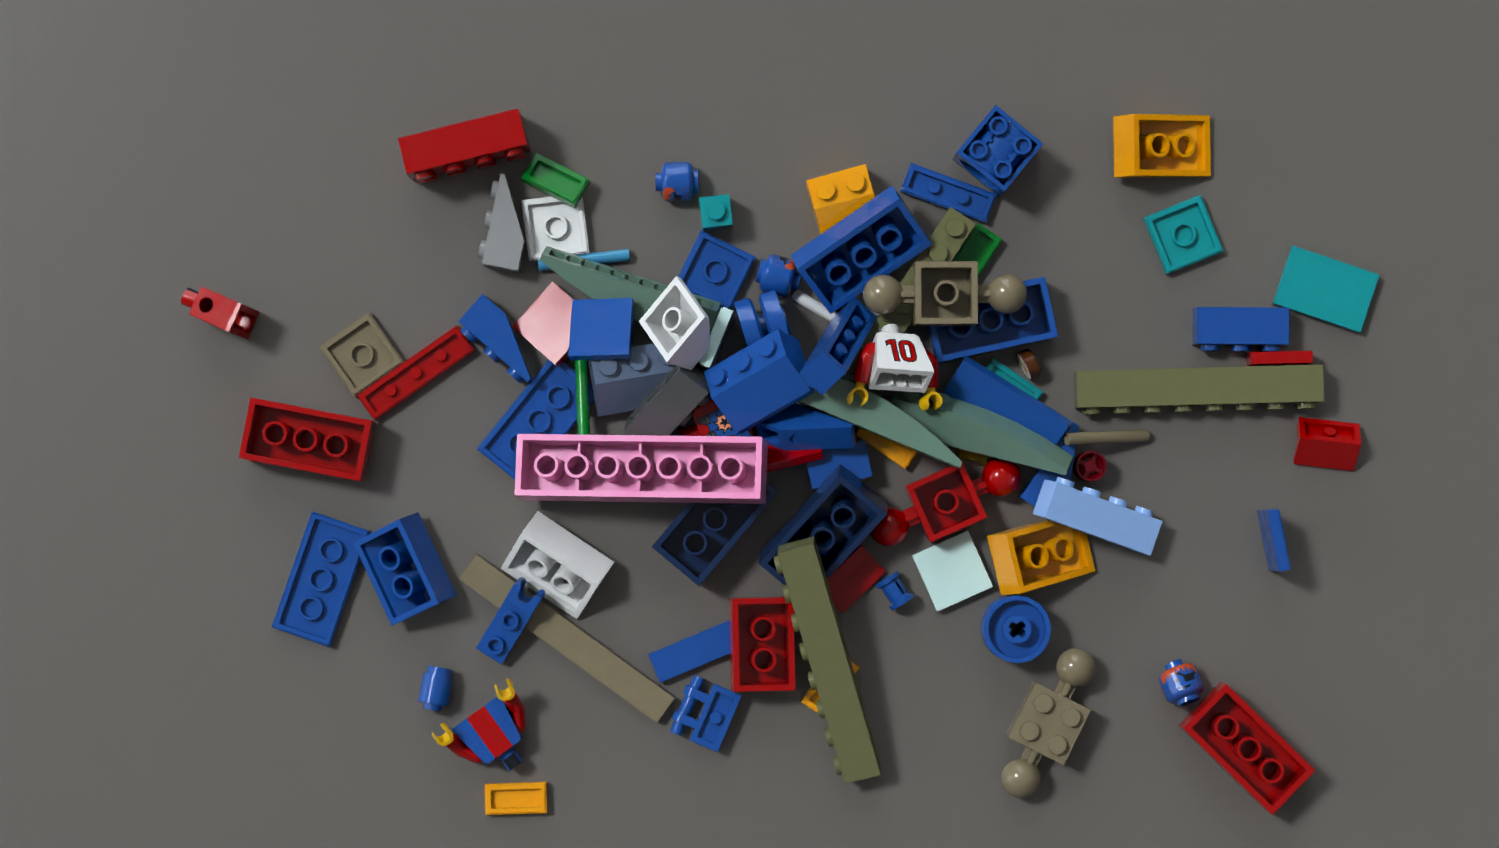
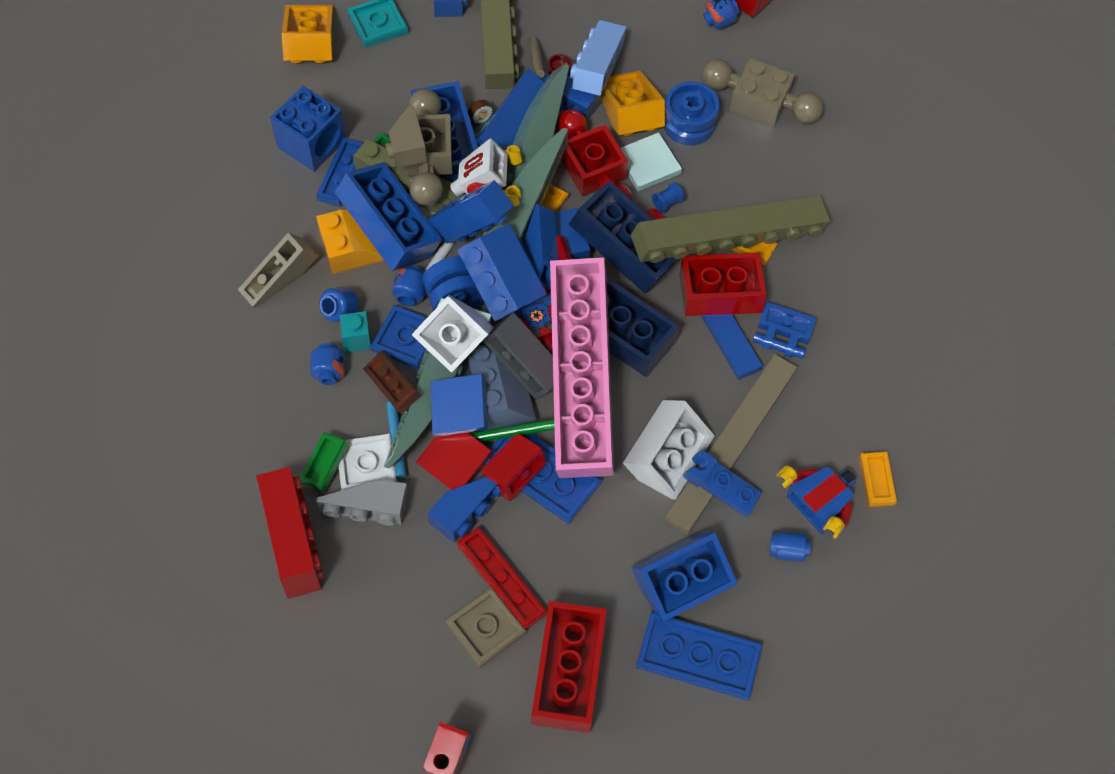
camera: 90 degrees left, 25 degrees down
(535, 388) = (514, 466): none -> red panel
(644, 254) = (391, 382): none -> copper tile
(751, 192) = (337, 302): none -> blue head
(803, 121) = (281, 267): none -> dark tan slope
(929, 270) = (406, 140): none -> dark tan slope

